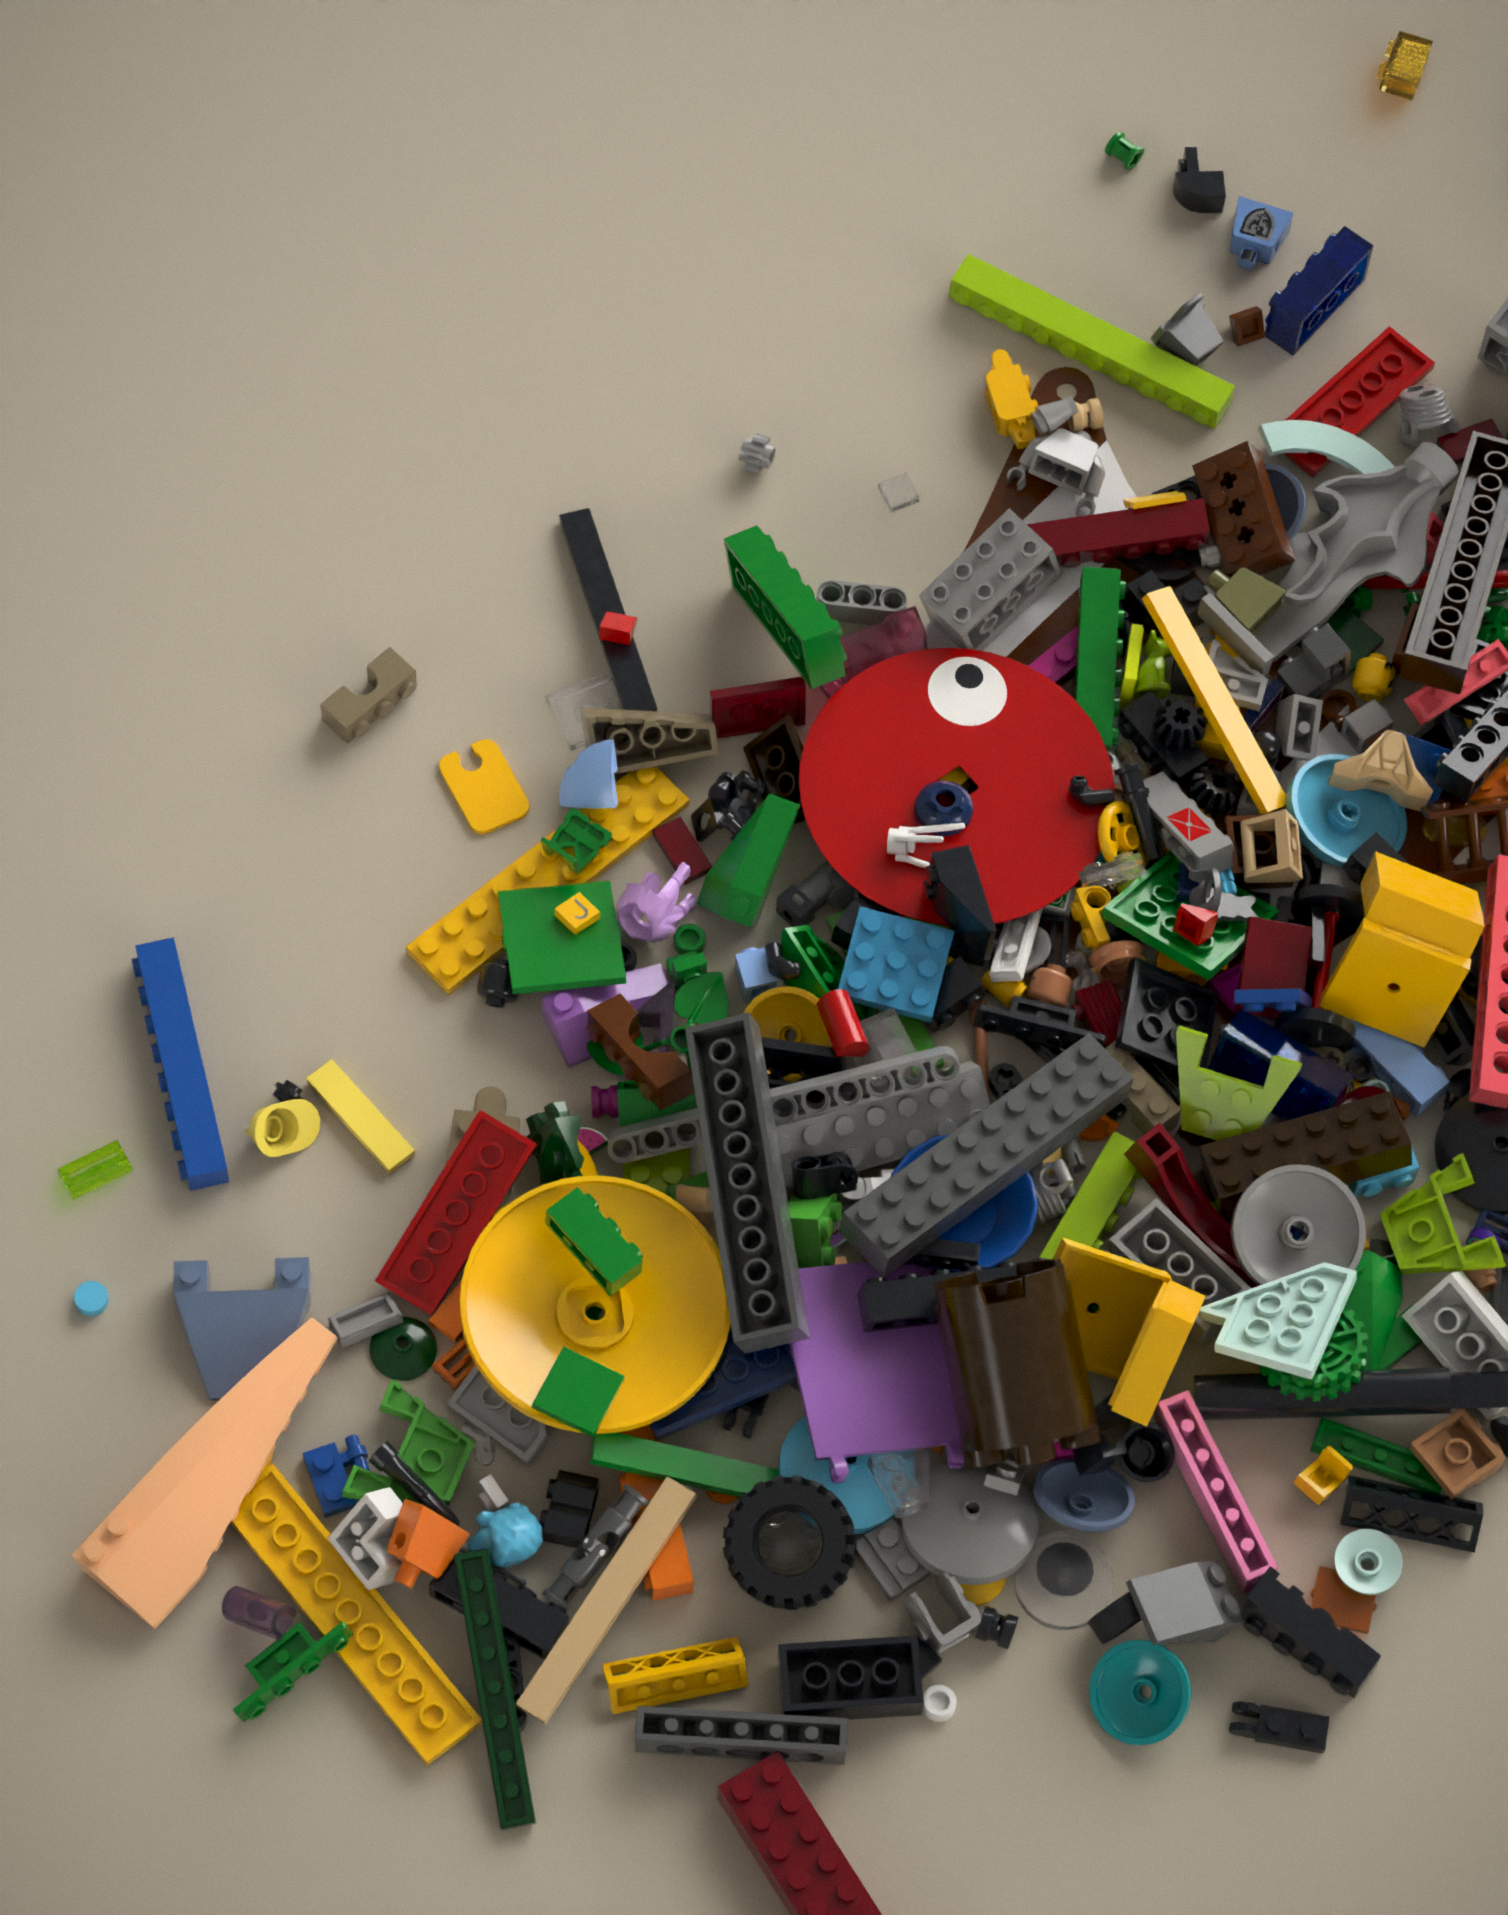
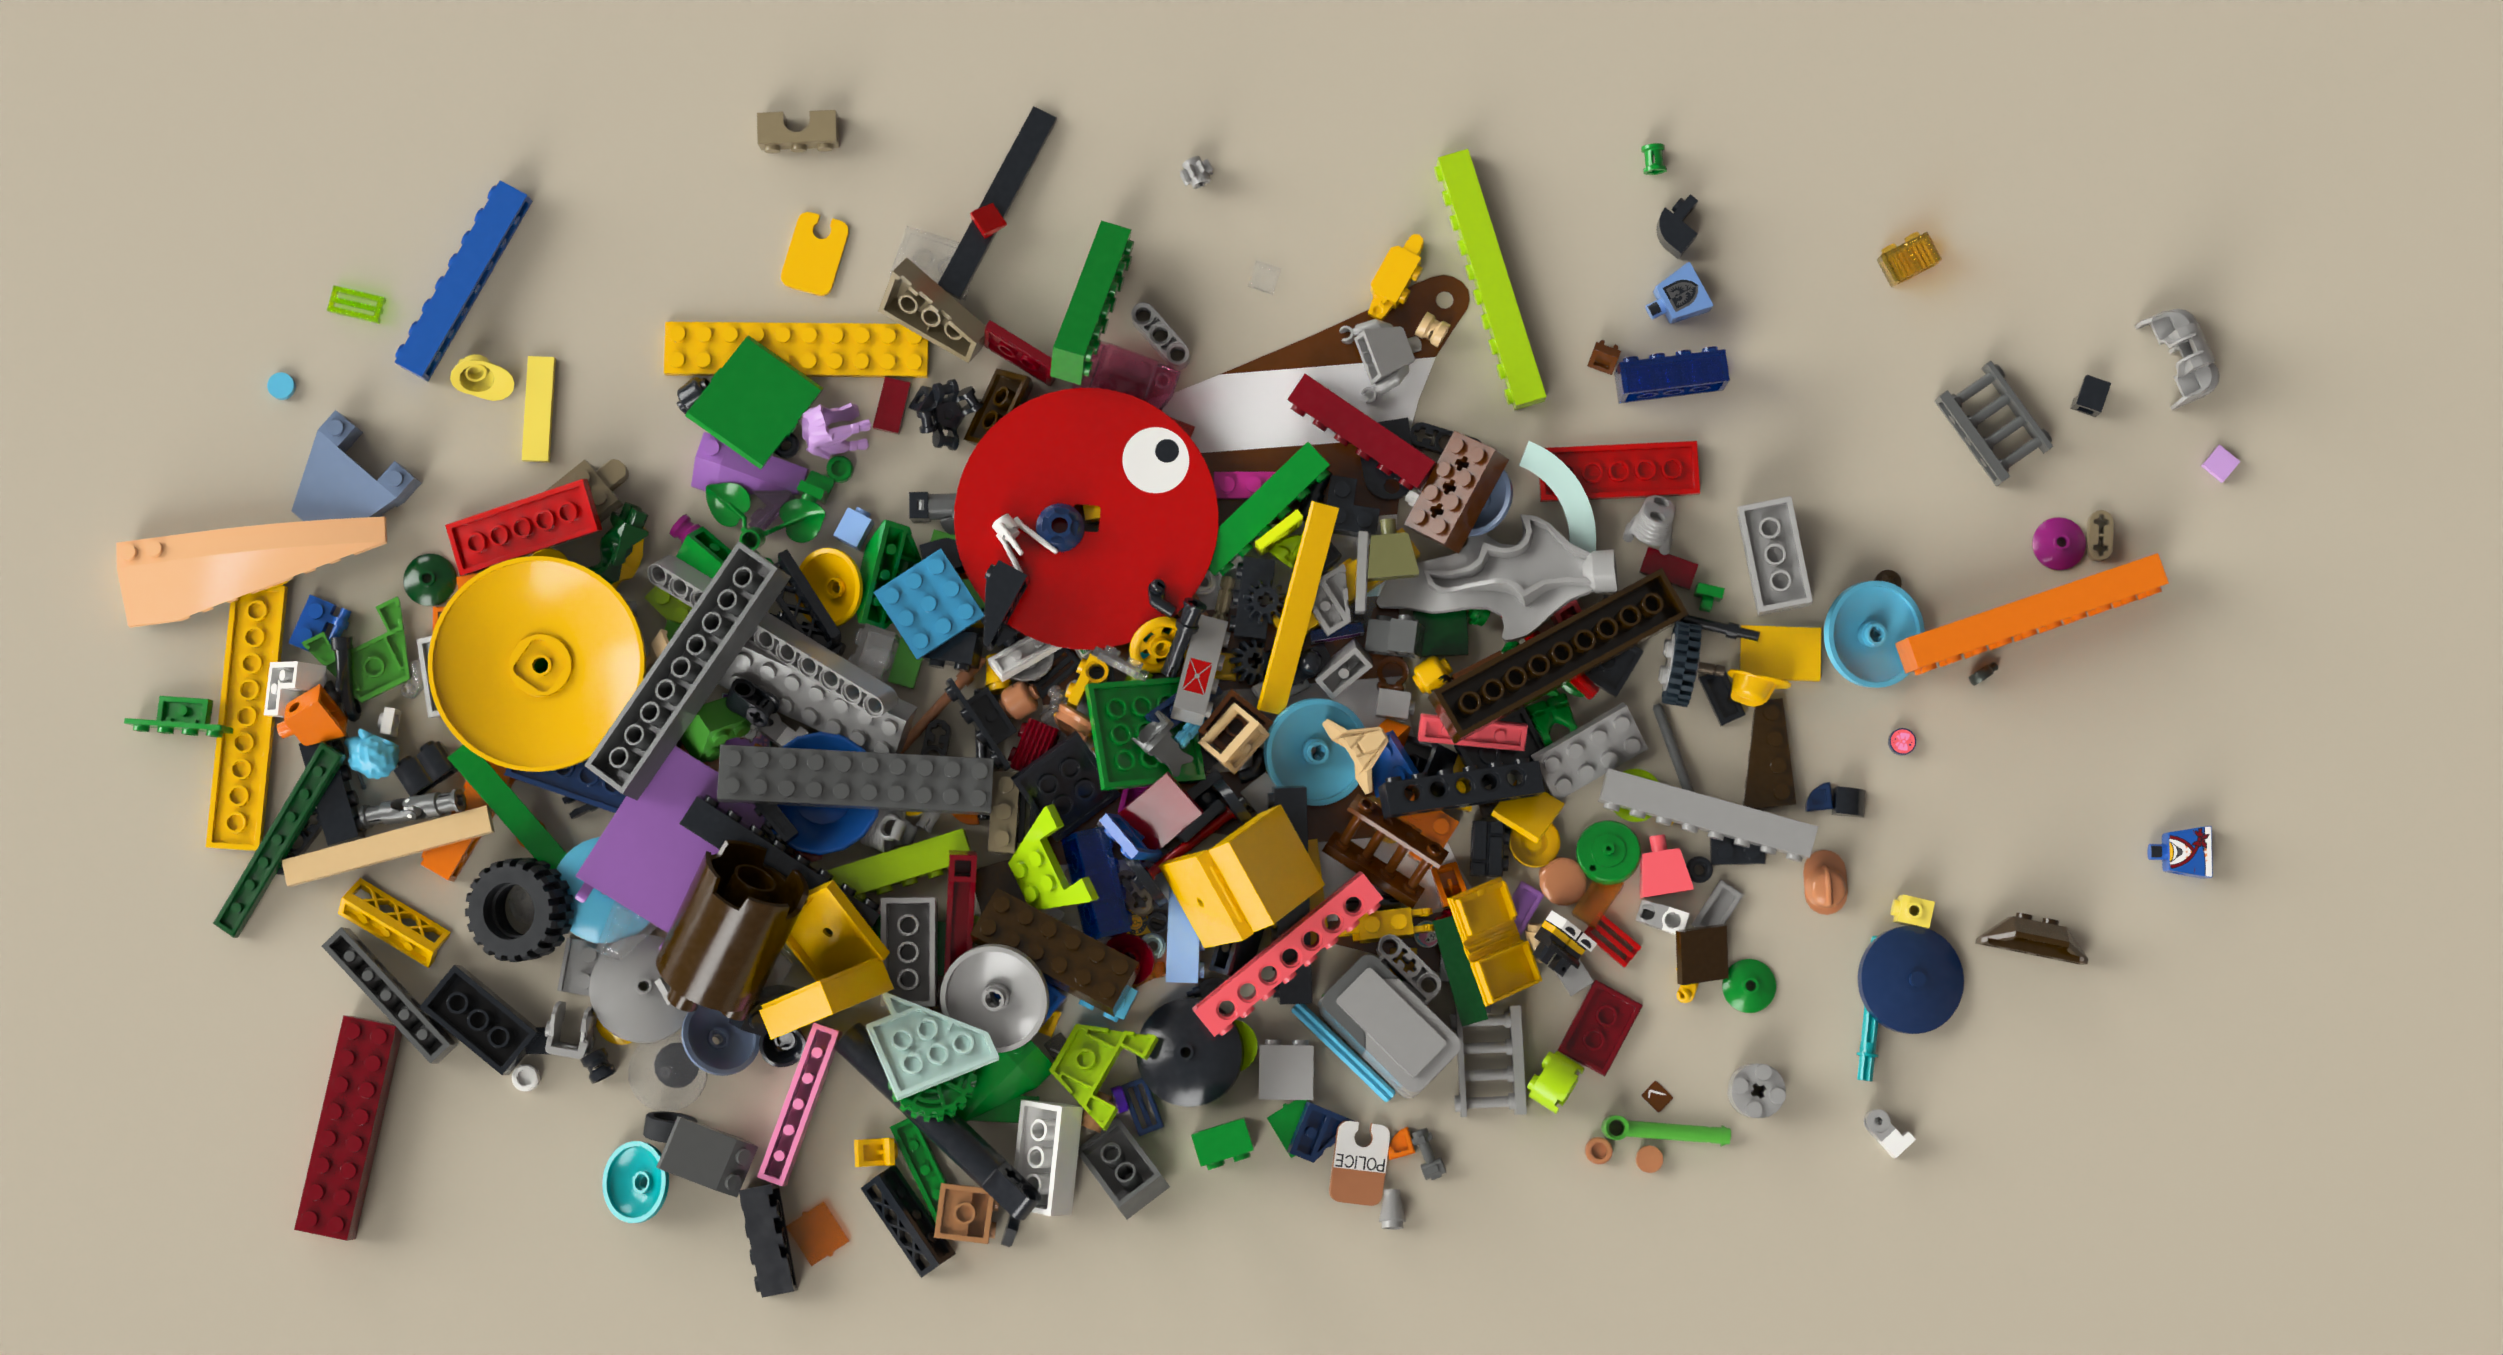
camera: 50 degrees right, 20 degrees up
(257, 1612) = (194, 670): brick -> none
(287, 1091) = (507, 357): black plate -> none
(365, 1319) = (421, 543): light grey tile -> none
(577, 913) = (775, 396): yellow tile -> none
(578, 834) = (831, 342): green piece -> none
(578, 1392) = (466, 713): green tile -> none
(591, 778) = (869, 312): light blue brick -> none
(592, 1139) = (655, 545): dark pink tile -> none
(594, 1240) = (563, 627): green brick -> none
(659, 1076) = (727, 494): reddish brown arch -> none
(745, 871) = (909, 456): green wedge -> none
(779, 966) = (862, 539): black arm -> none
(842, 1024) = (853, 617): red brick -> none
(991, 583) = (1238, 401): light grey brick -> none
(1052, 415) = (1402, 314): light grey cone -> none
(1155, 499) = (1409, 432): yellow piece -> none
(1189, 333) = (1554, 333): container -> none
(1195, 923) = (1126, 748): red slope -> none
(1282, 1727) = (705, 1275): black hinge -> none
(1370, 1547) = (835, 1227): light aqua dish -> none

